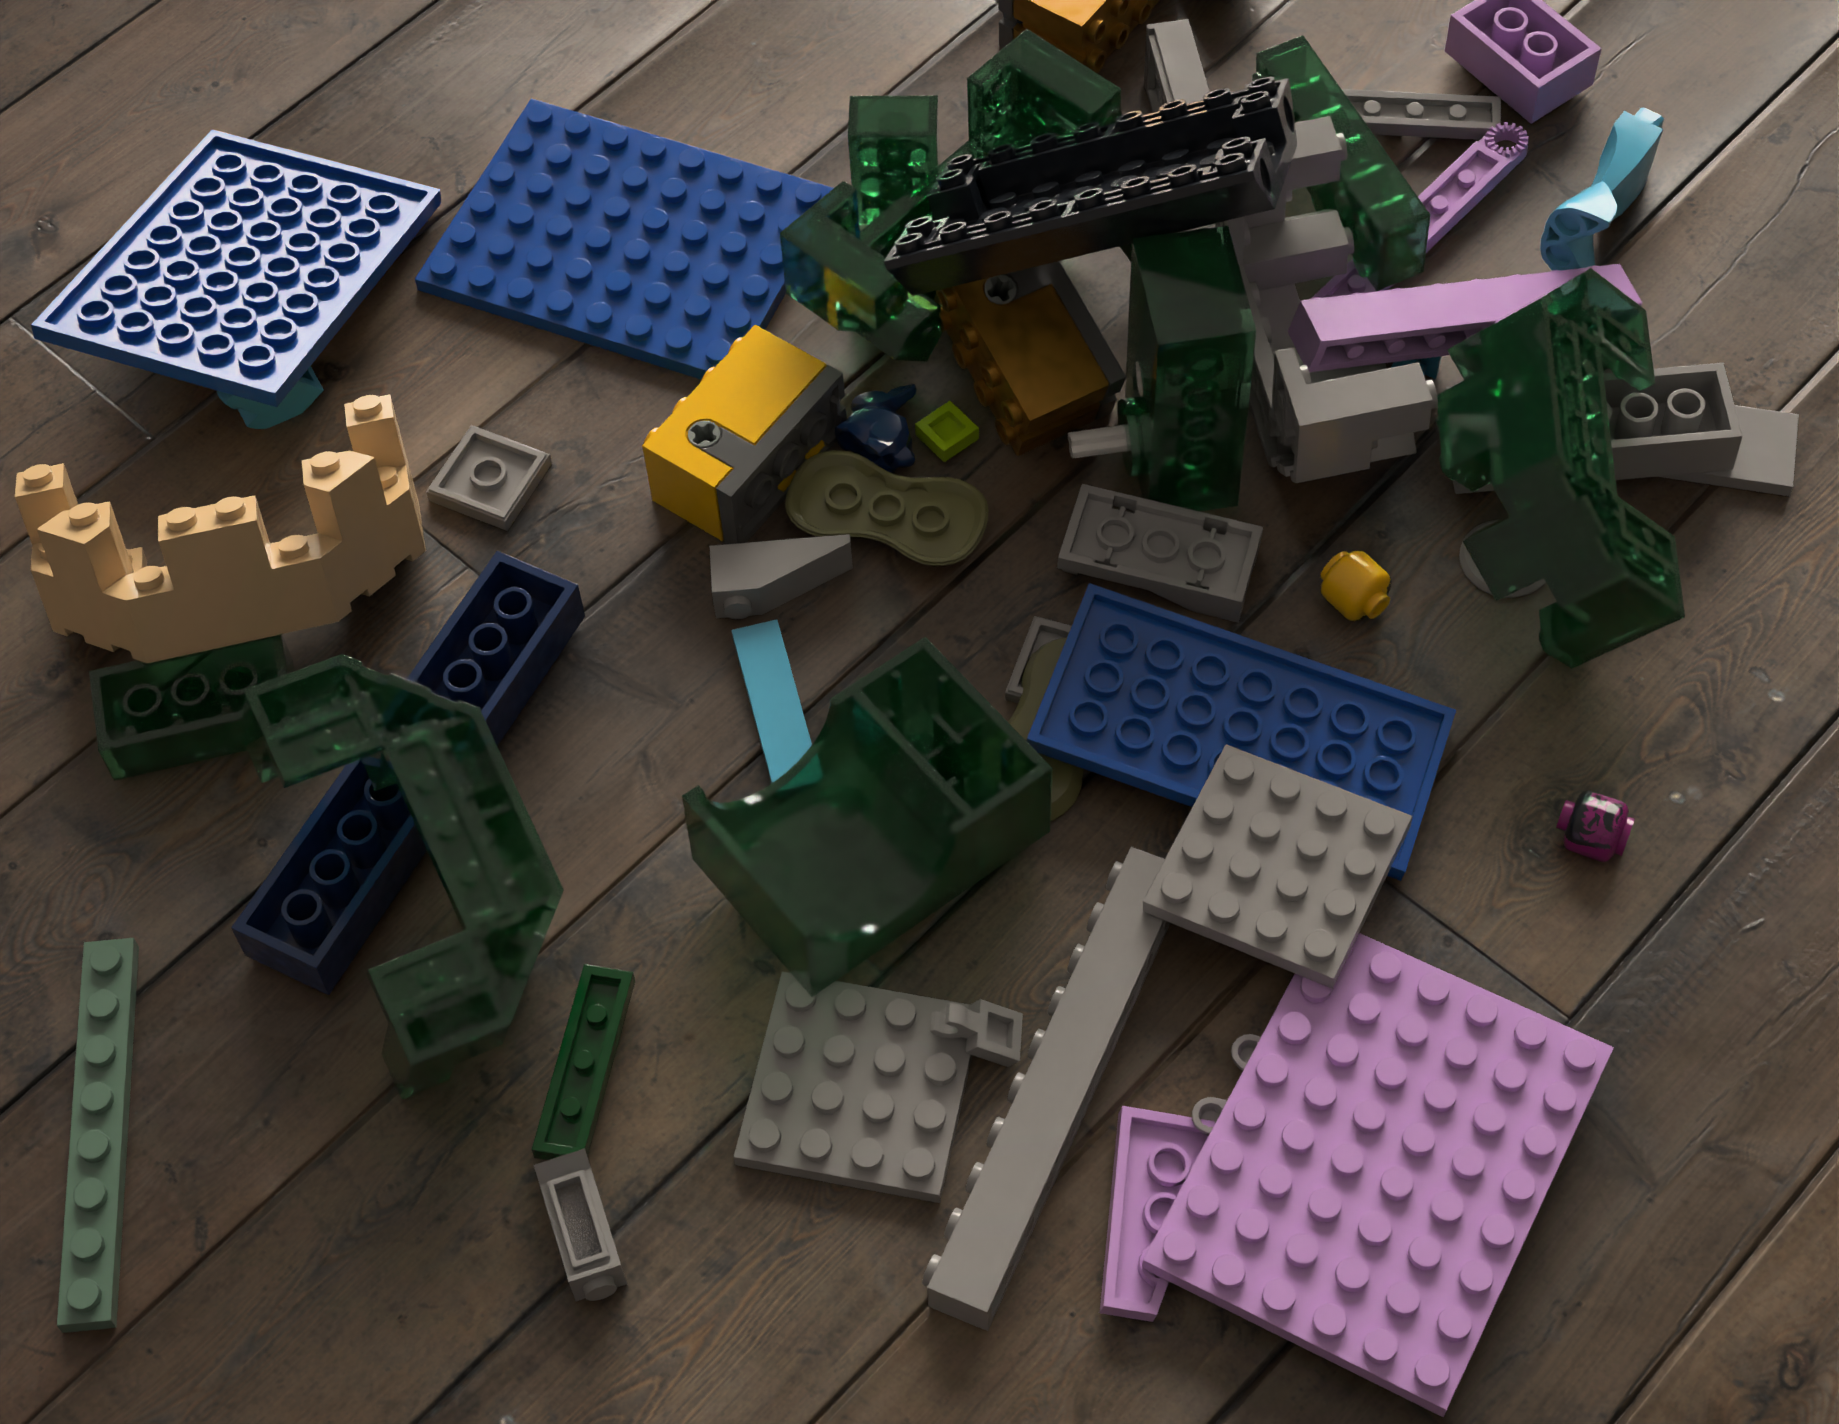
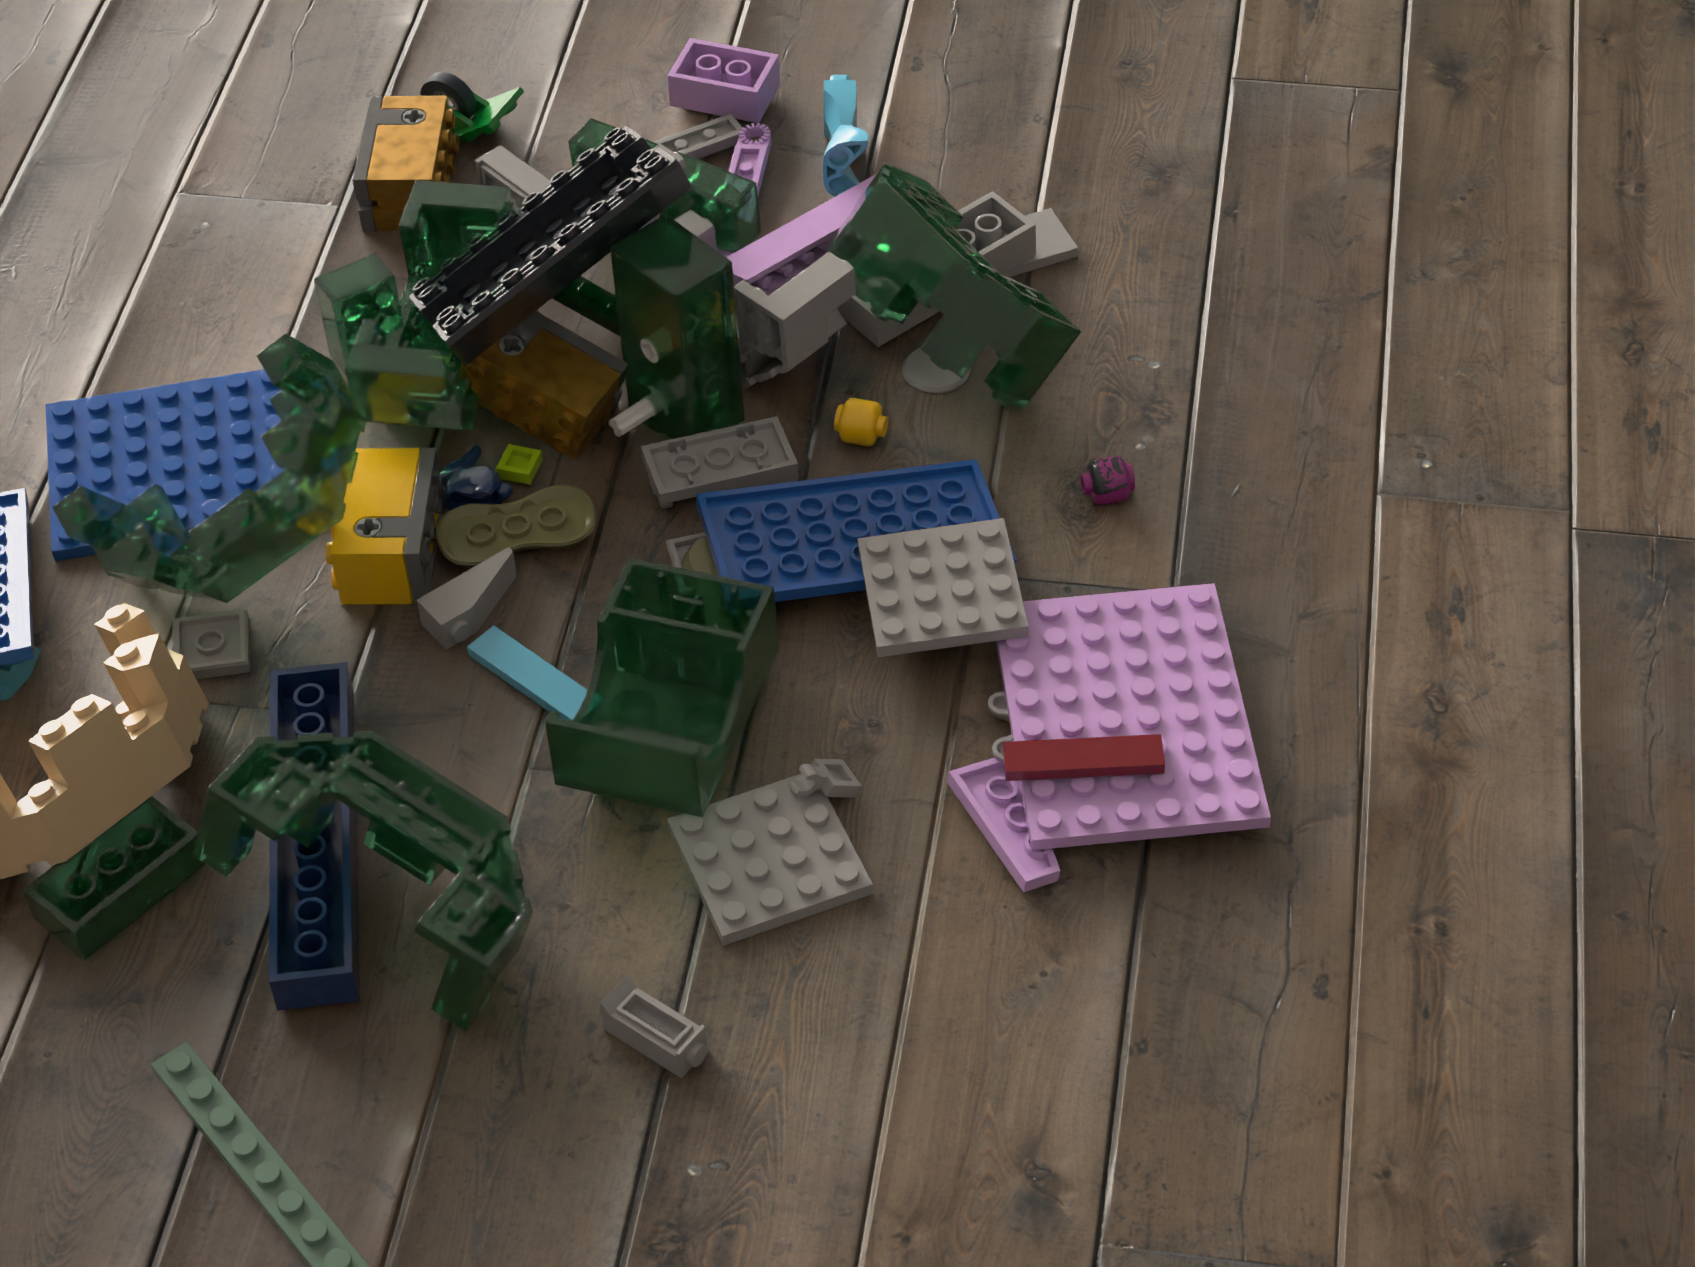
camera: 35 degrees left, 10 degrees down
(584, 1062) = (576, 938): dark green plate -> none
(662, 338) = (257, 529): none -> clear green brick
(1048, 1100) = (899, 793): light grey brick -> none
(1274, 1193) = (1083, 757): none -> dark red tile

